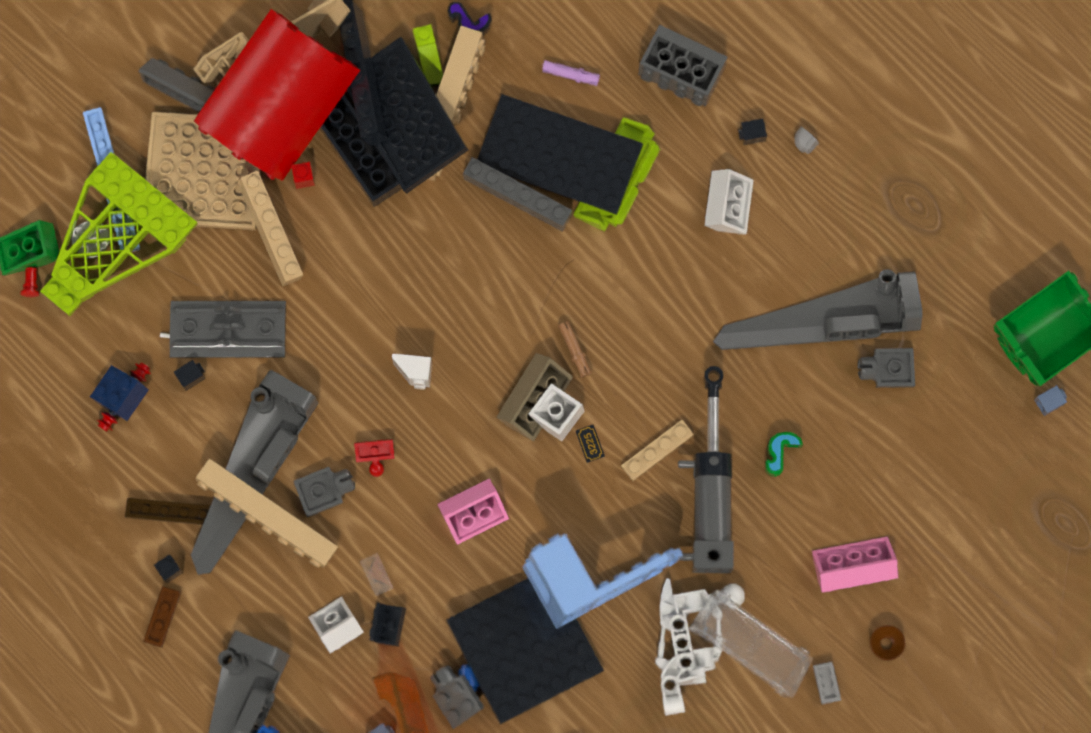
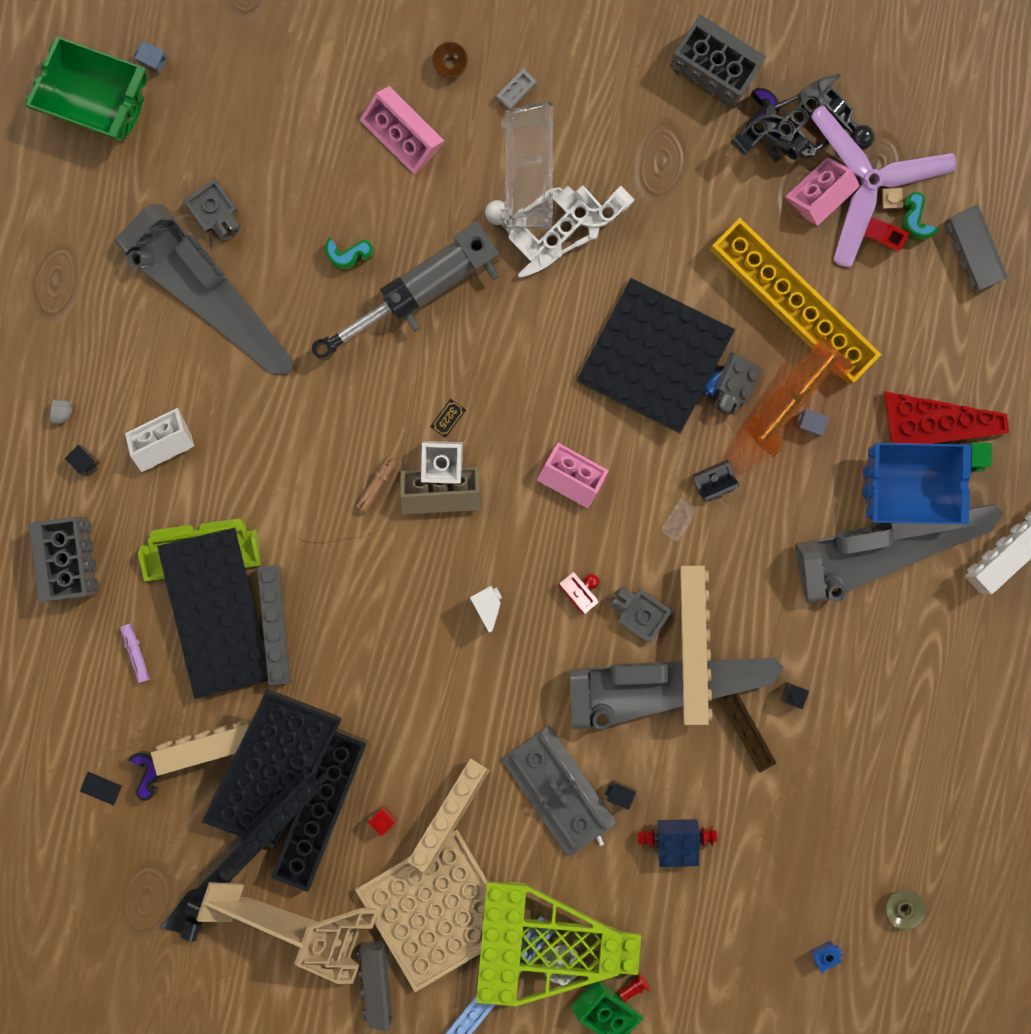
camera: 125 degrees left, 10 degrees up
(162, 617) = (835, 672): reddish brown tile -> none
(275, 96) = (331, 893): red panel -> none
(335, 624) = (744, 524): white slope -> none
(428, 54) = (201, 787): lime slope -> none
(567, 588) = (590, 344): light blue bracket -> none
(657, 450) = (416, 357): tan plate -> none

